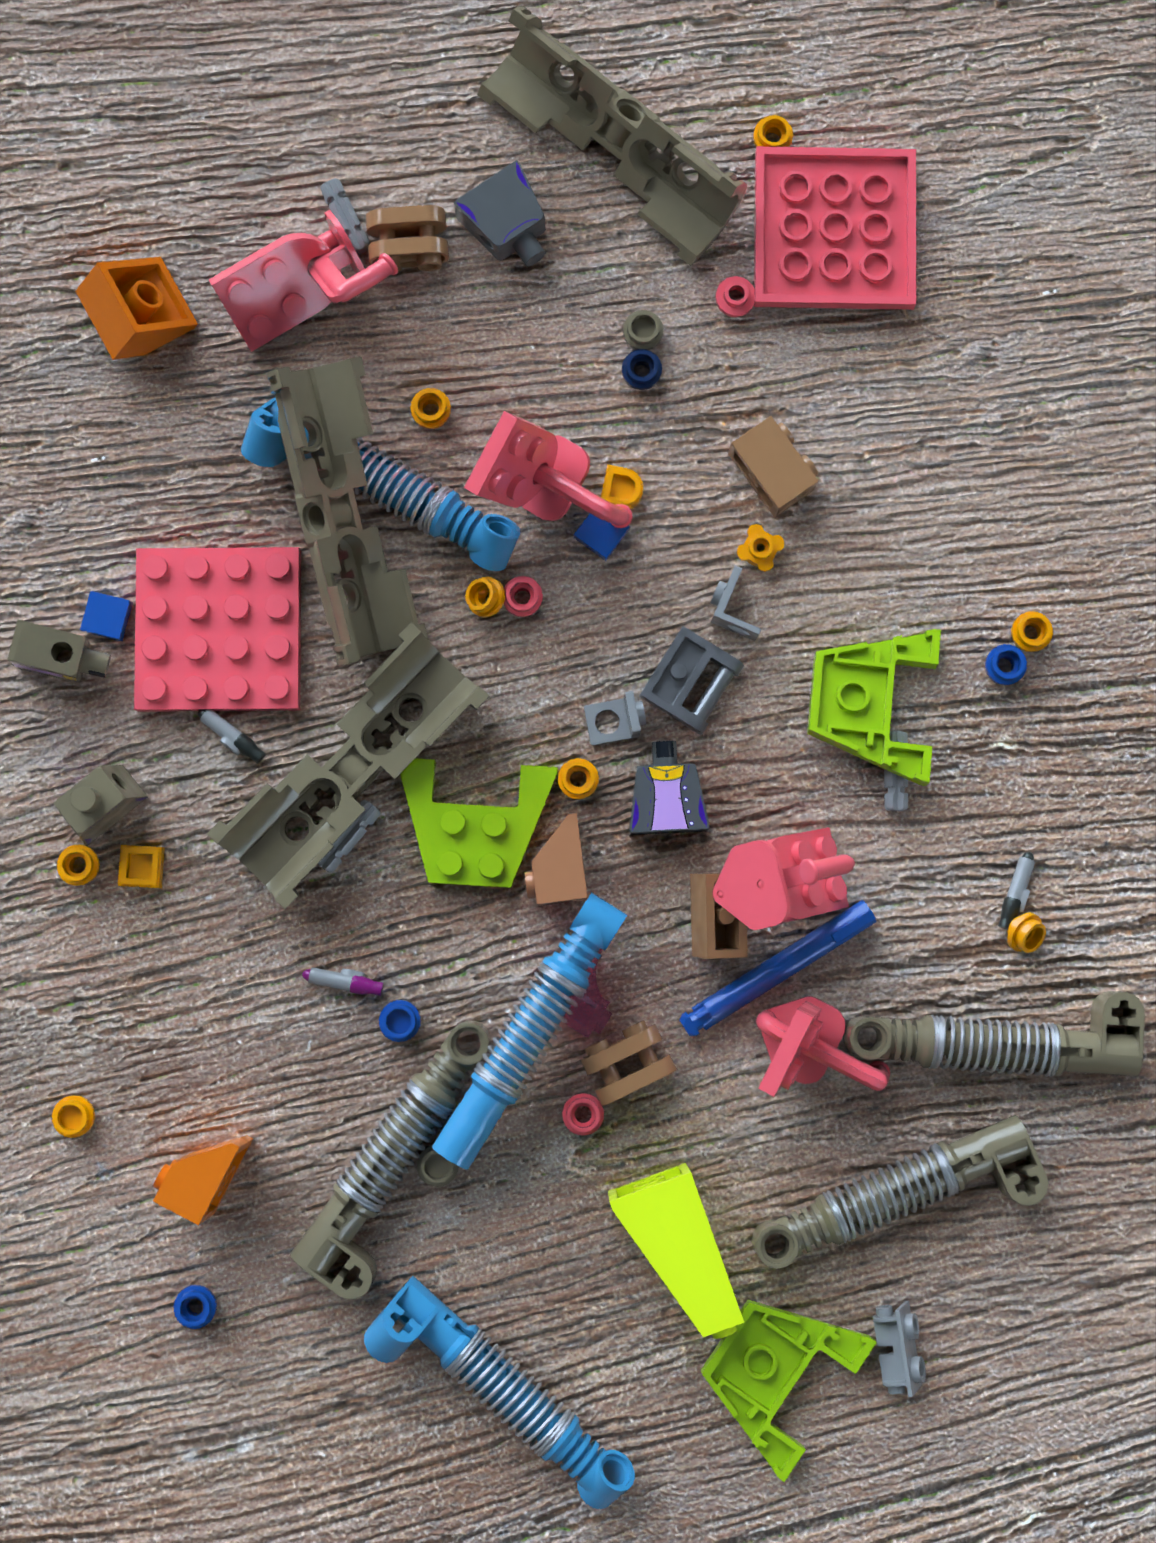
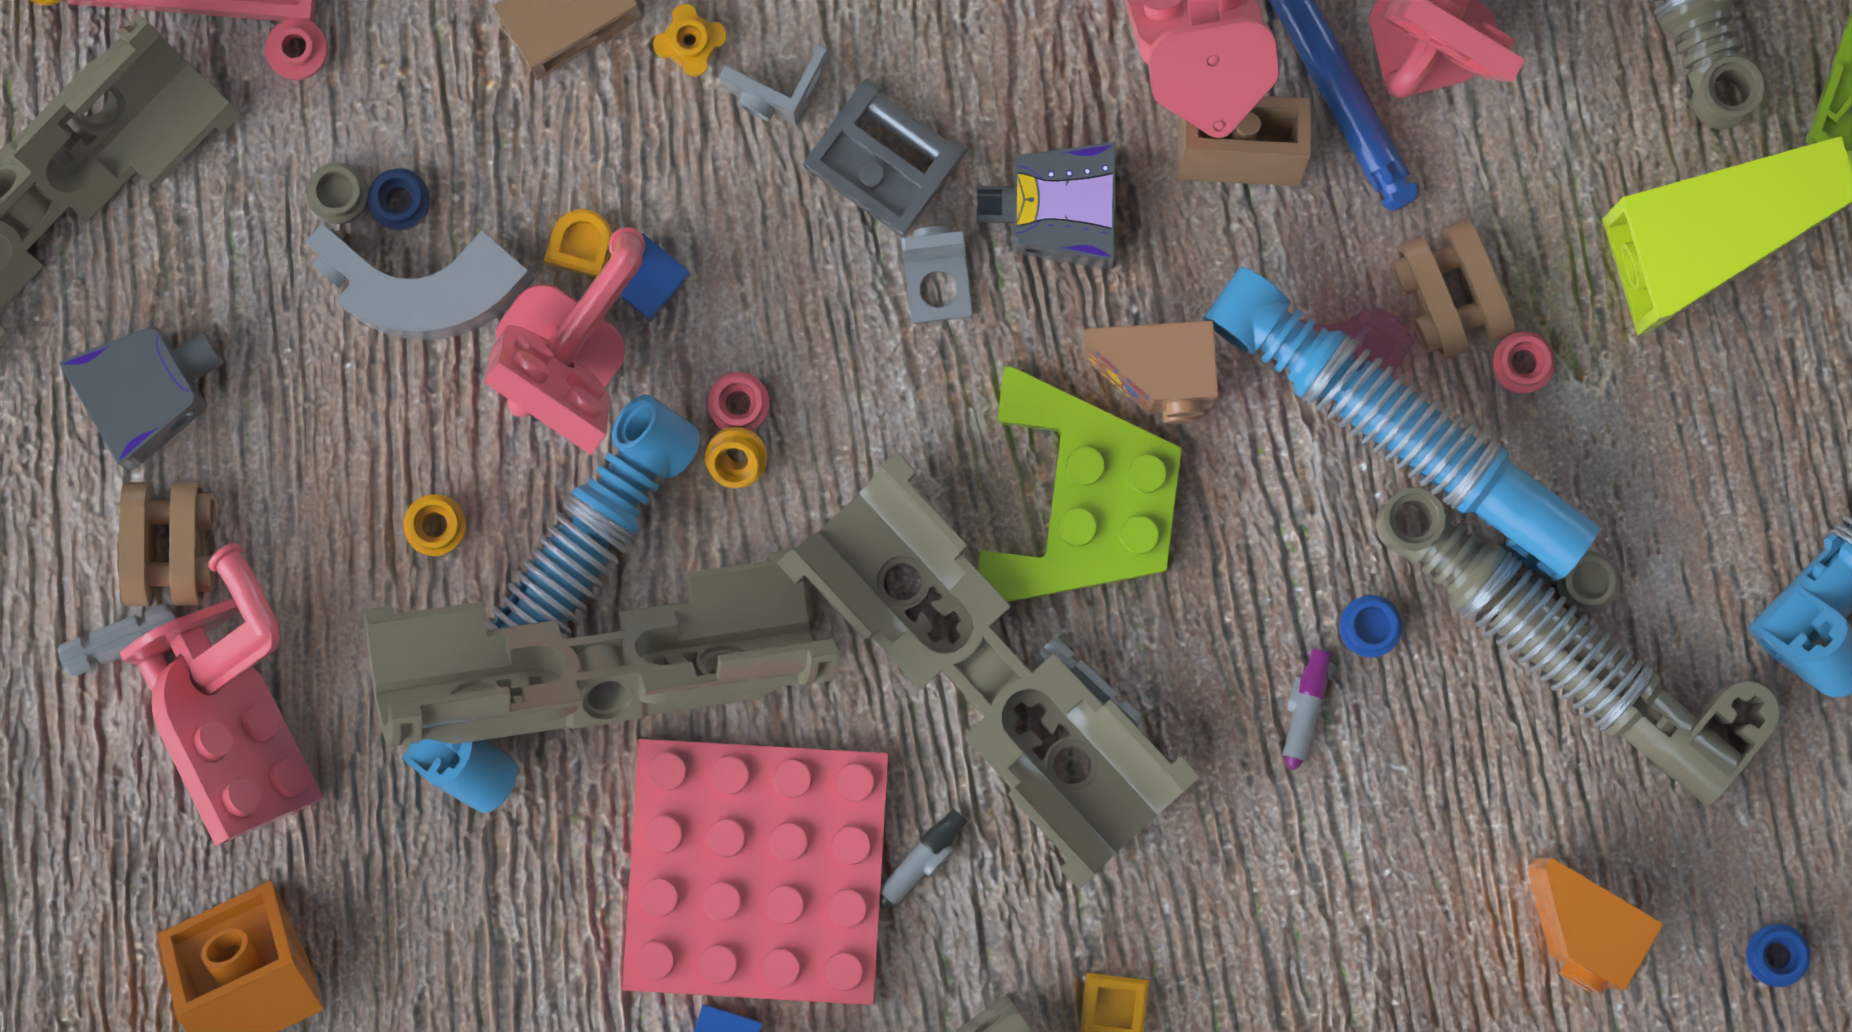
camera: 80 degrees left, 0 degrees up
(578, 411) = (433, 307): none -> light grey arch
(584, 767) = (1028, 318): light orange plate -> none

